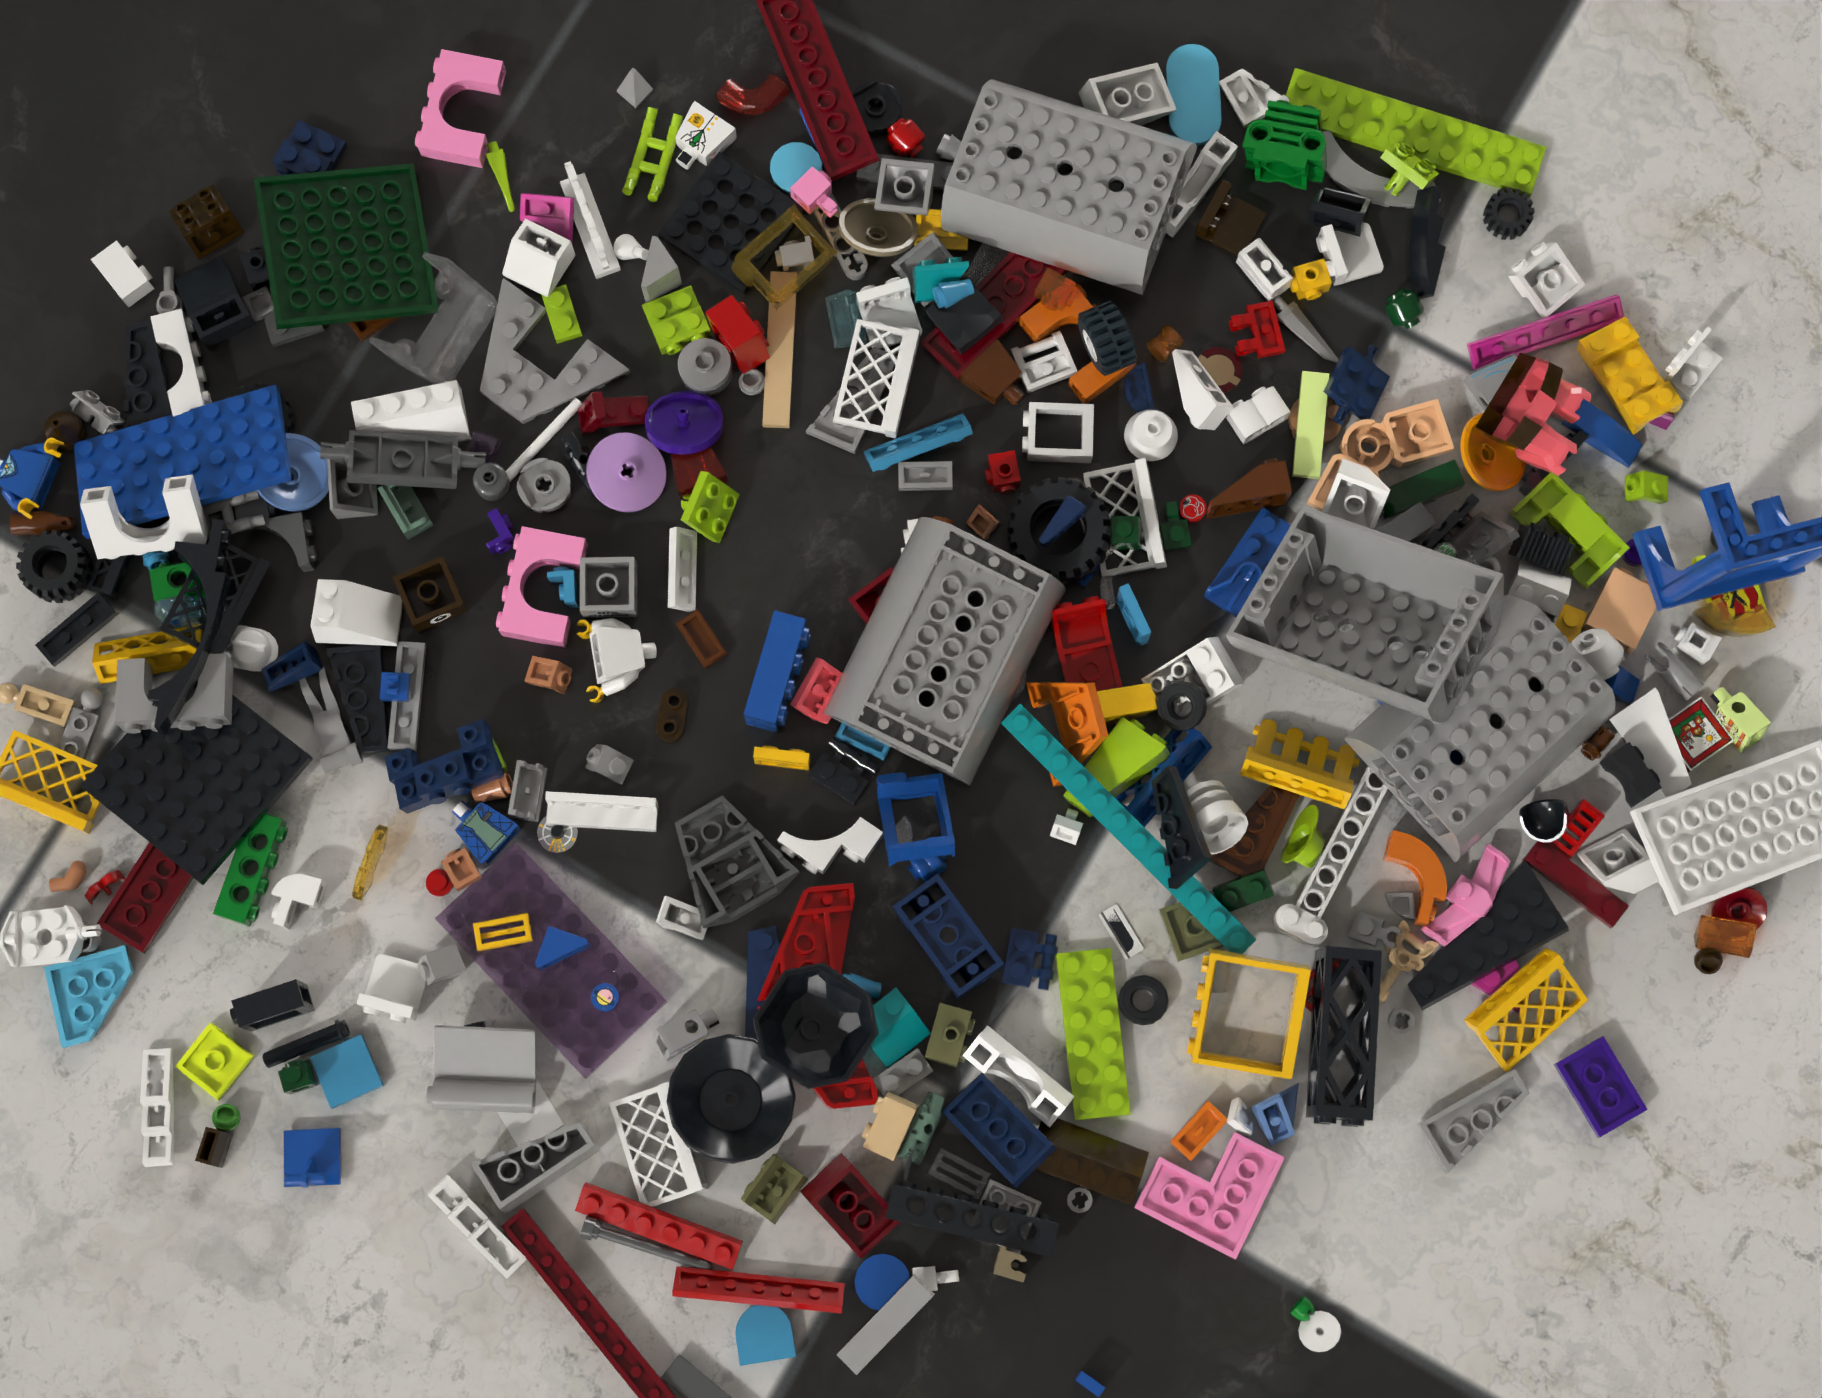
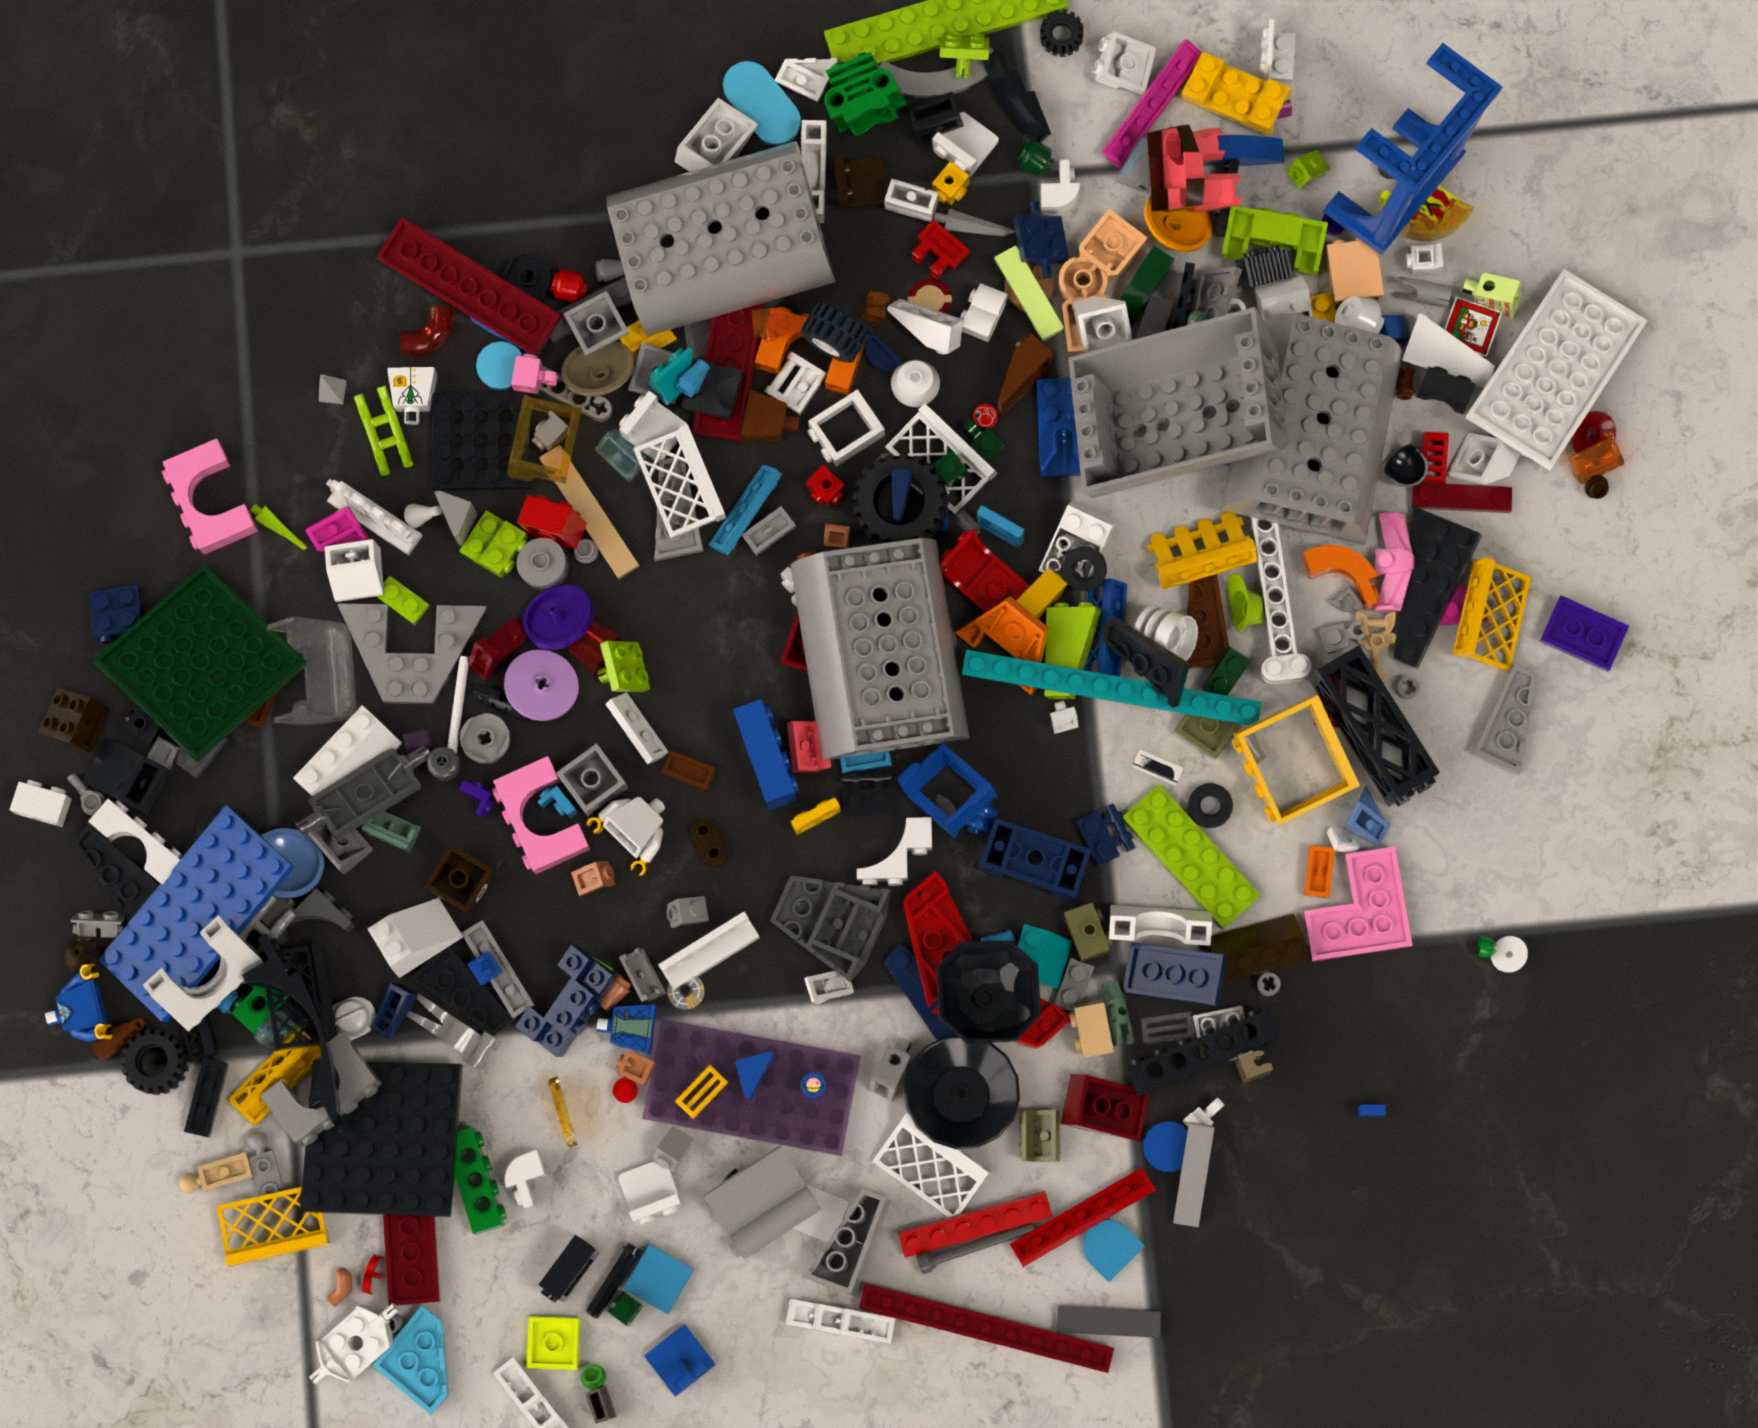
camera: 30 degrees left, 0 degrees up
(1404, 359) = (1061, 196): none -> white brick

